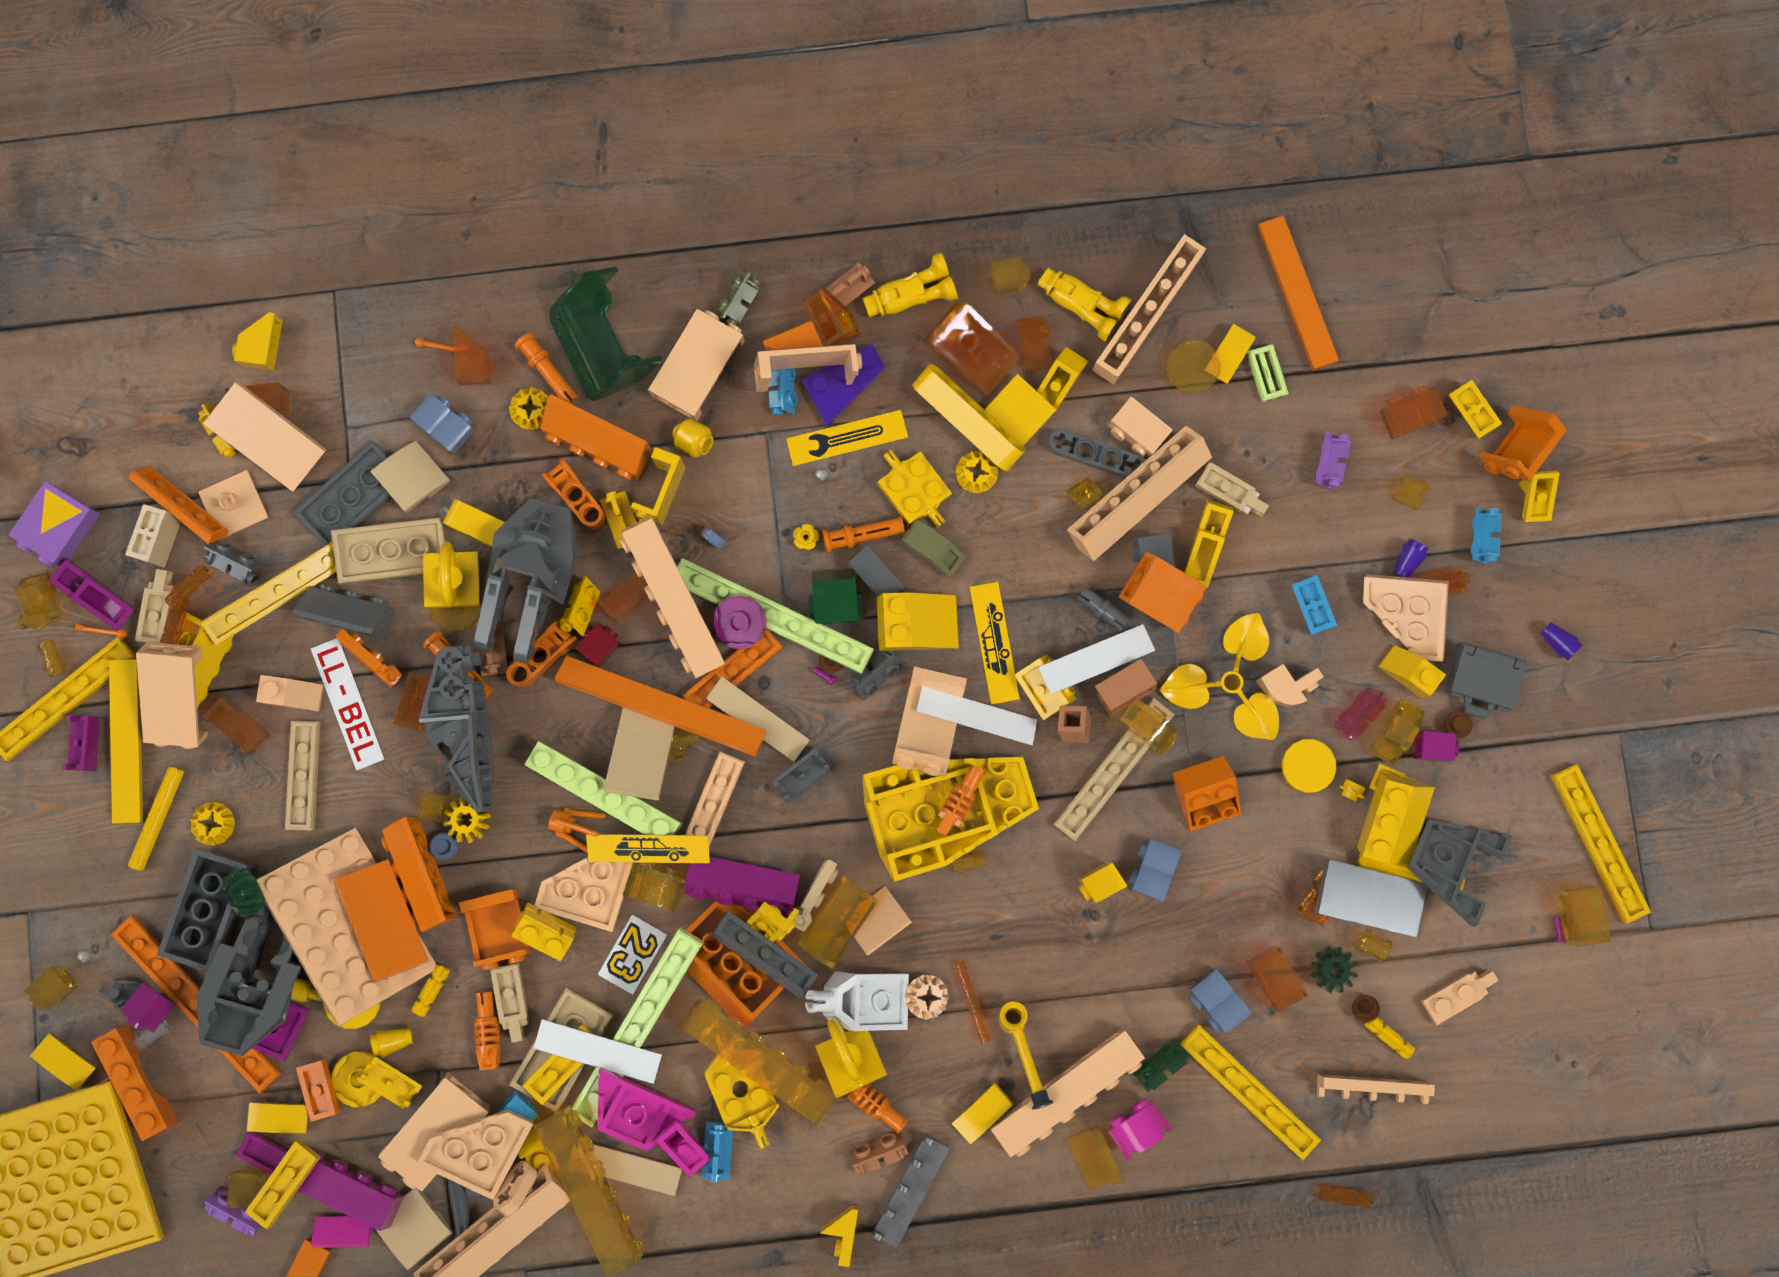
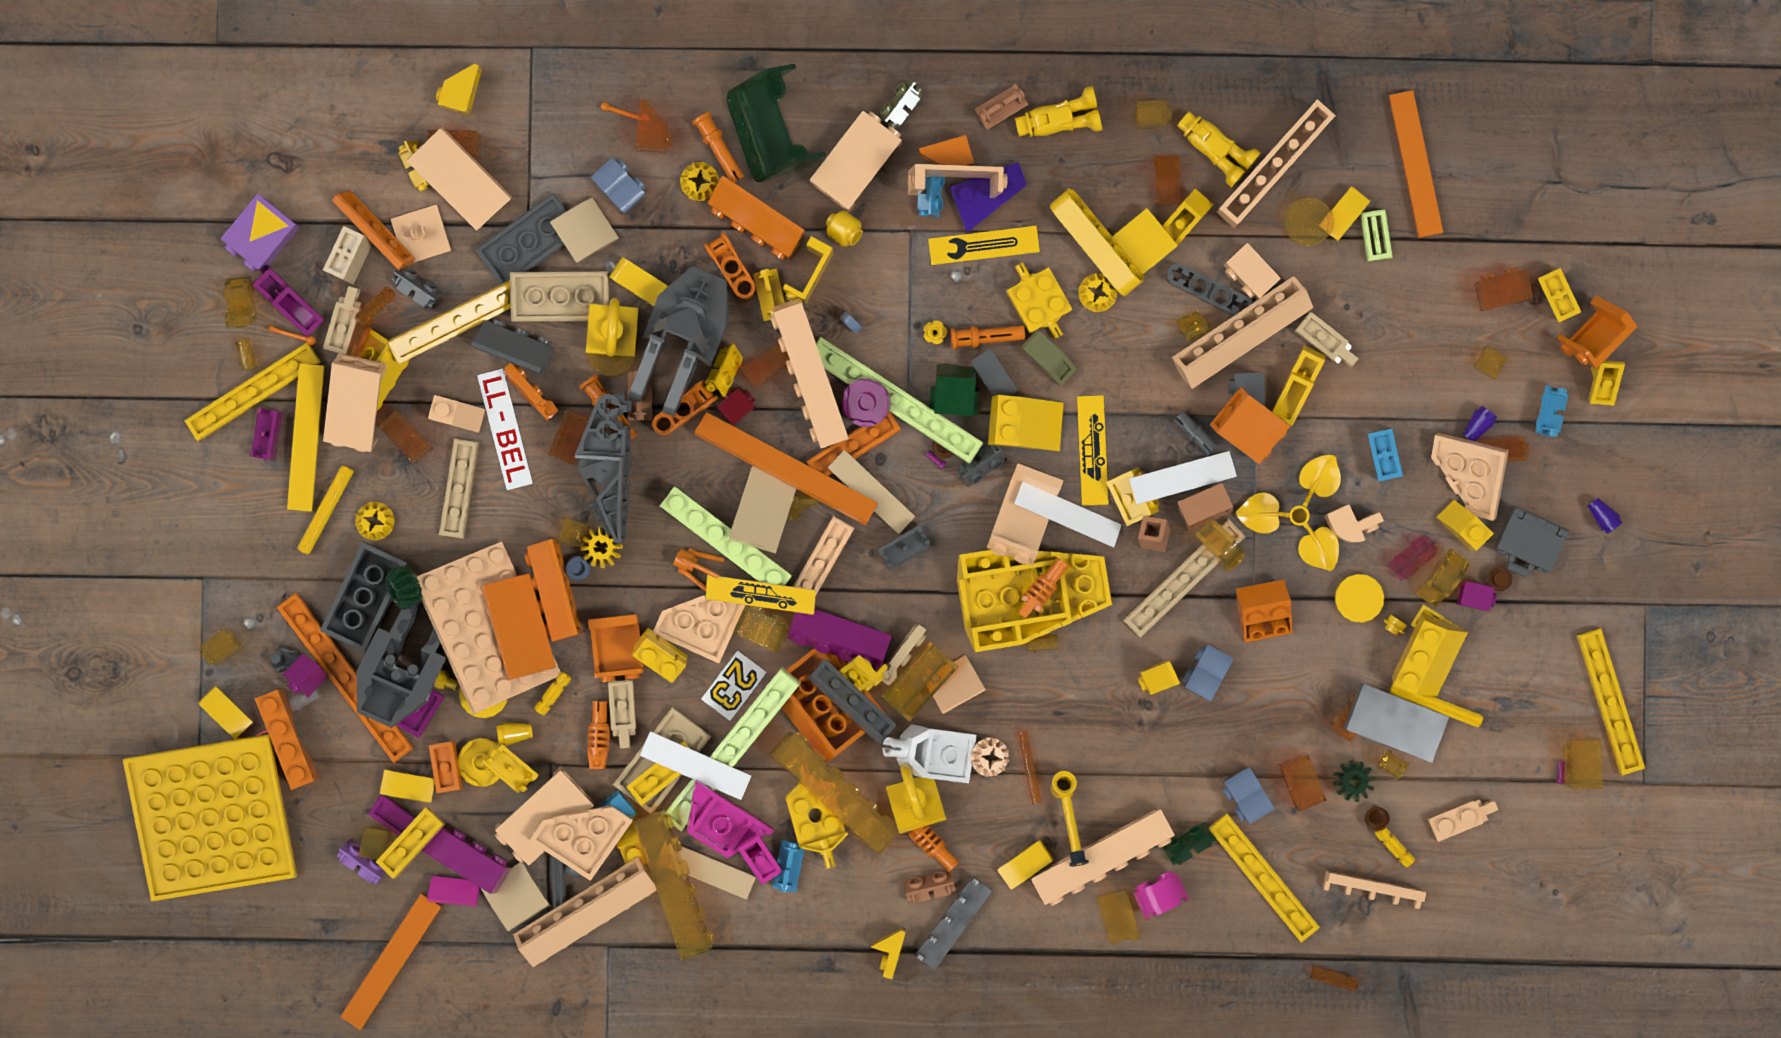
camera: 10 degrees right, 5 degrees up
(515, 1188) = (610, 873): light nougat beam -> none
(831, 319) = (984, 135): clear orange slope -> none
(972, 347) = (1108, 177): clear orange slope -> none
(1330, 472) = (1419, 334): medium lavender hinge -> none
(1443, 860) = (1466, 696): dark grey wing -> none

